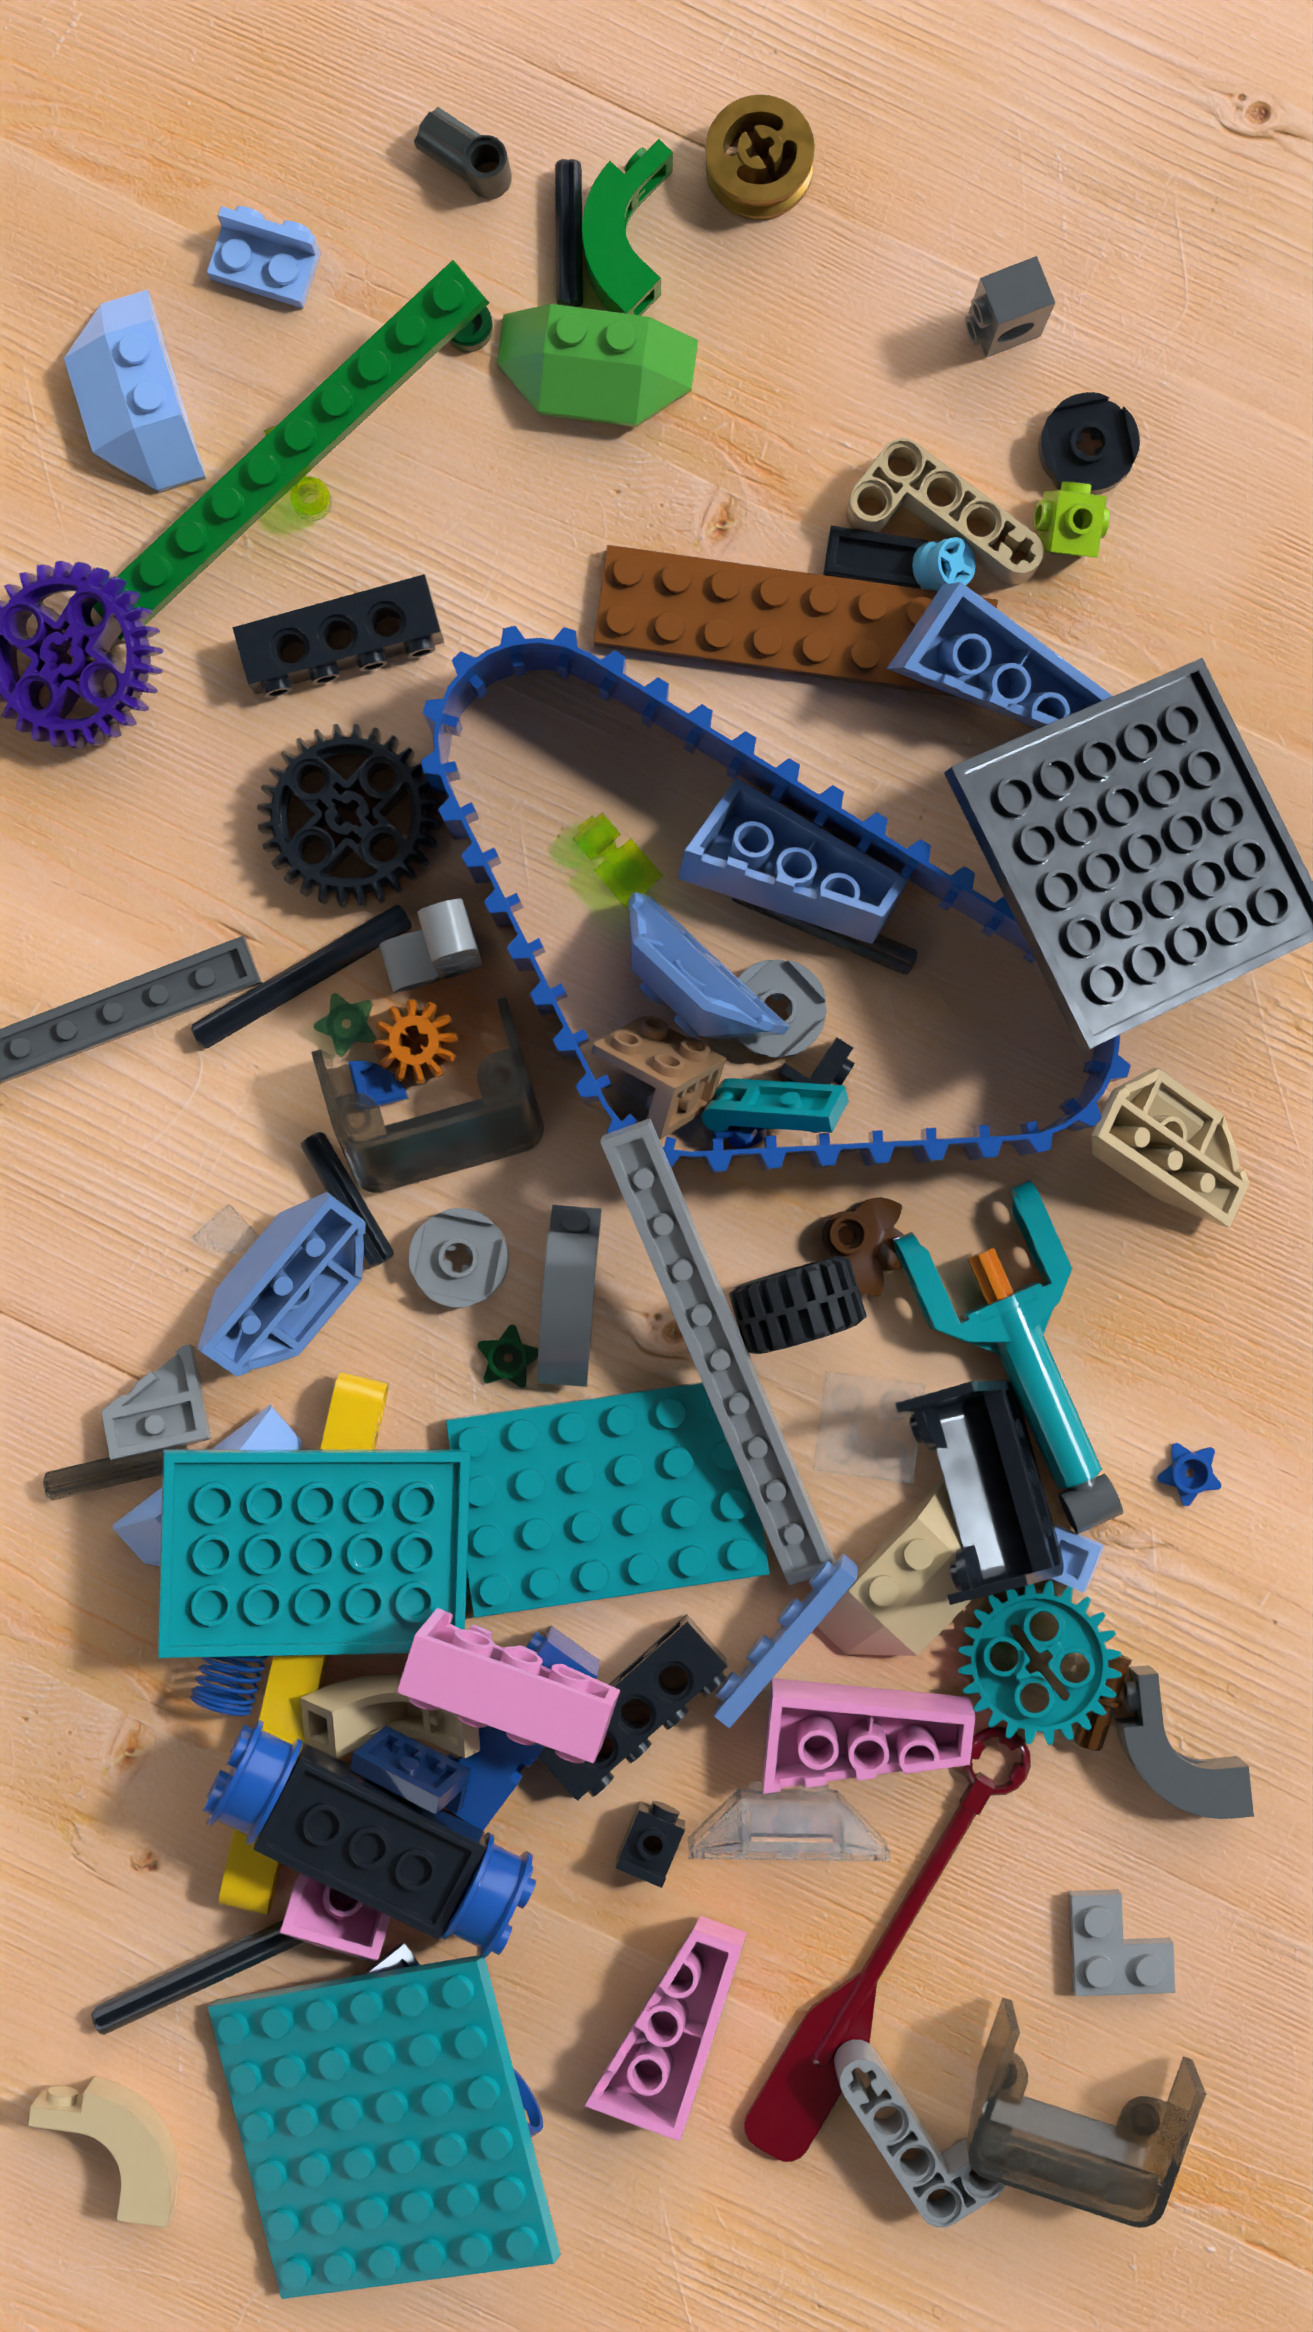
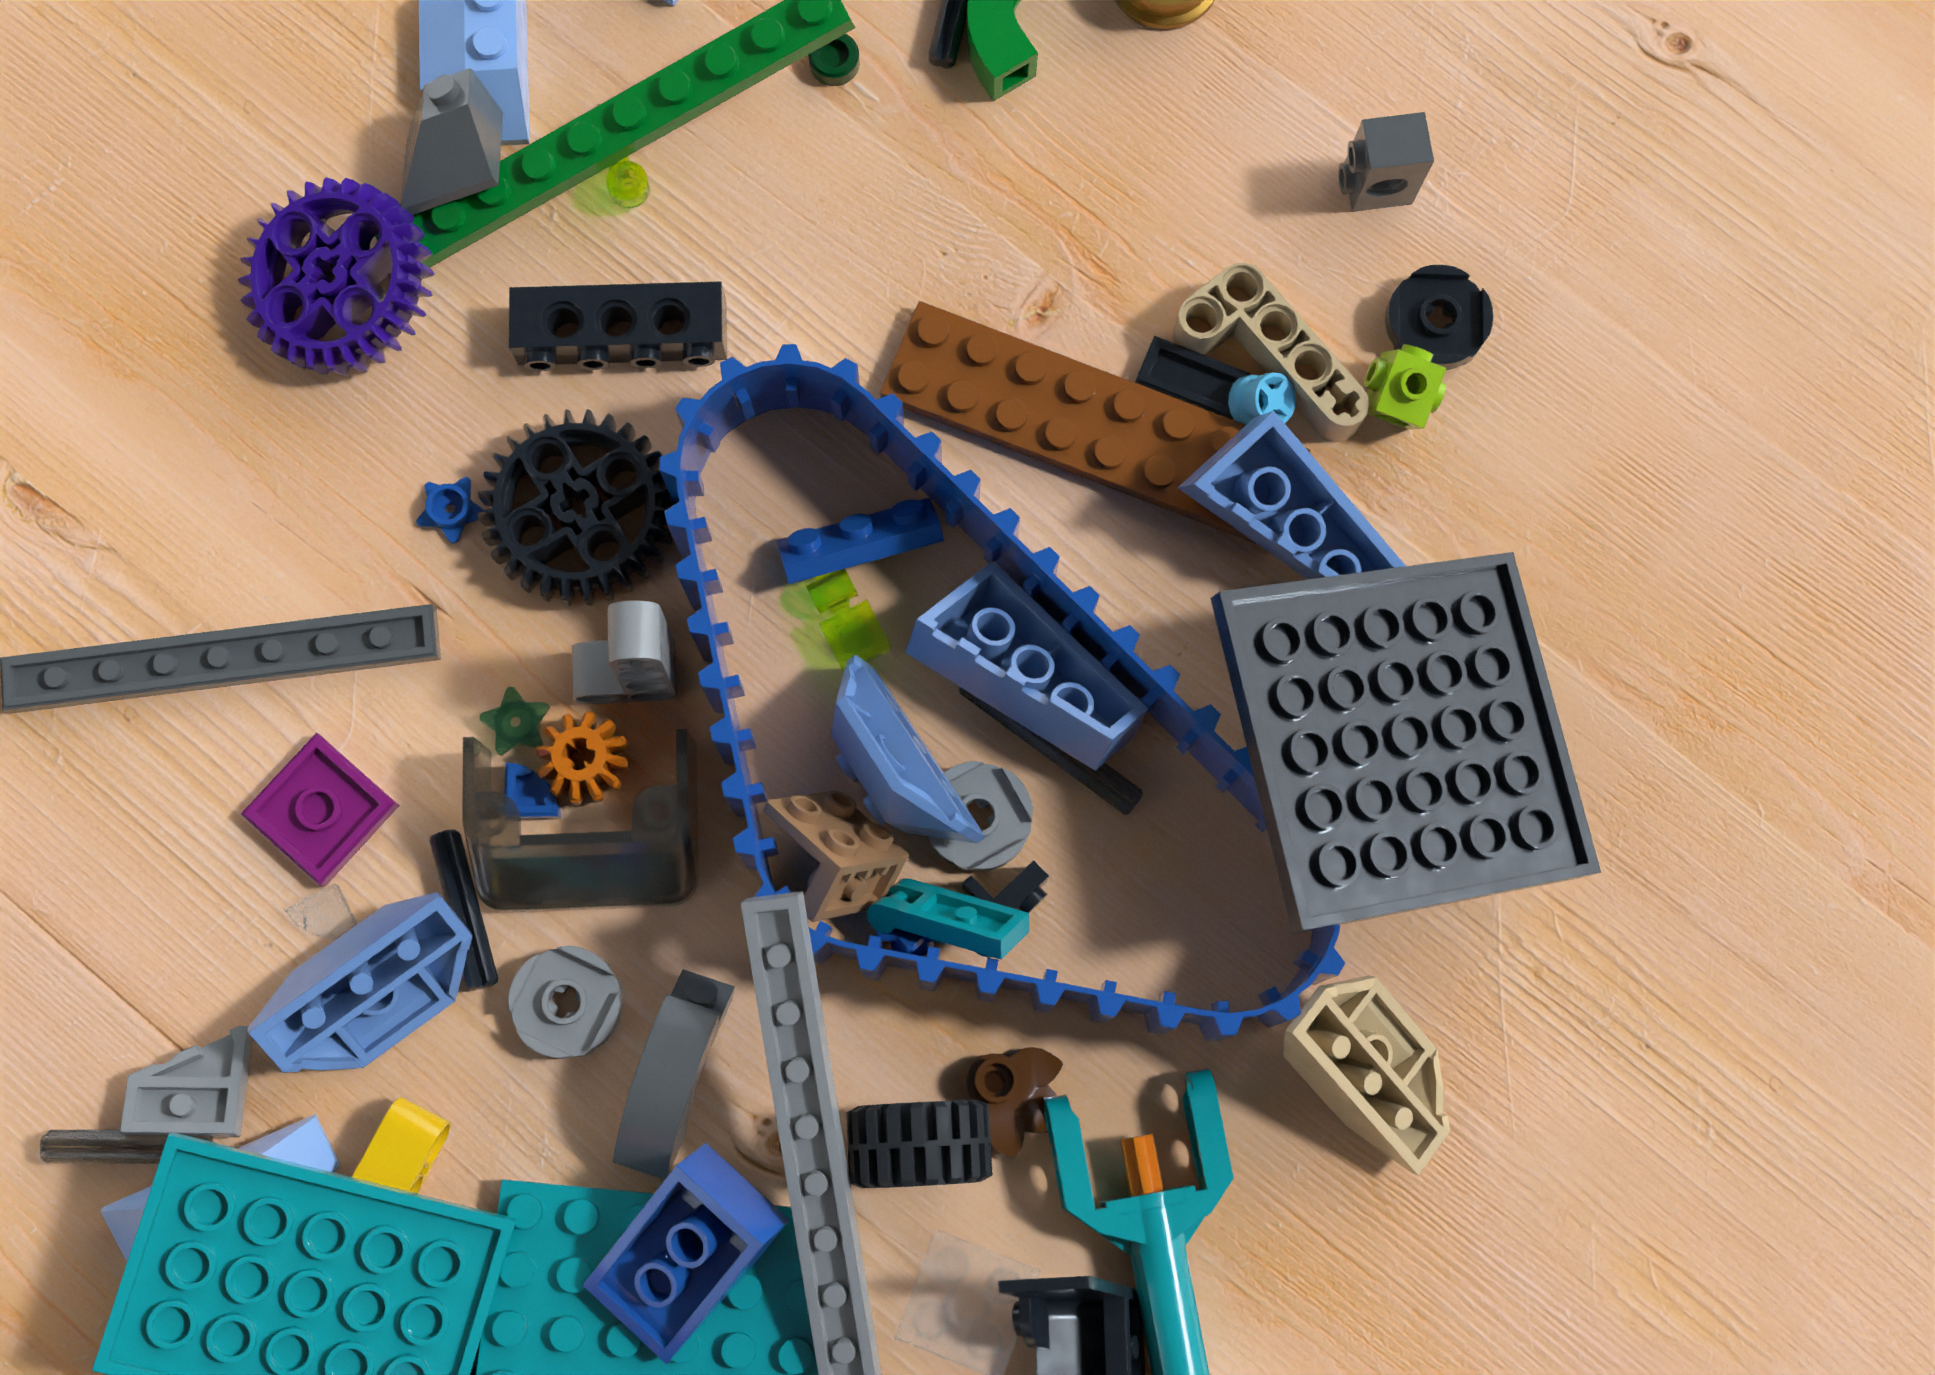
camera: 10 degrees right, 10 degrees down
(140, 503) = (451, 143): none -> dark grey slope
(196, 1142) = (320, 810): none -> magenta tile
(220, 836) = (449, 494): none -> blue plate
(300, 977) = (477, 662): black axle -> none
(496, 1349) = (577, 1136): dark green plate -> none
(595, 363) = (954, 121): bright green wedge -> none
(610, 784) = (859, 539): none -> blue plate
(621, 1442) = (685, 1251): none -> blue slope

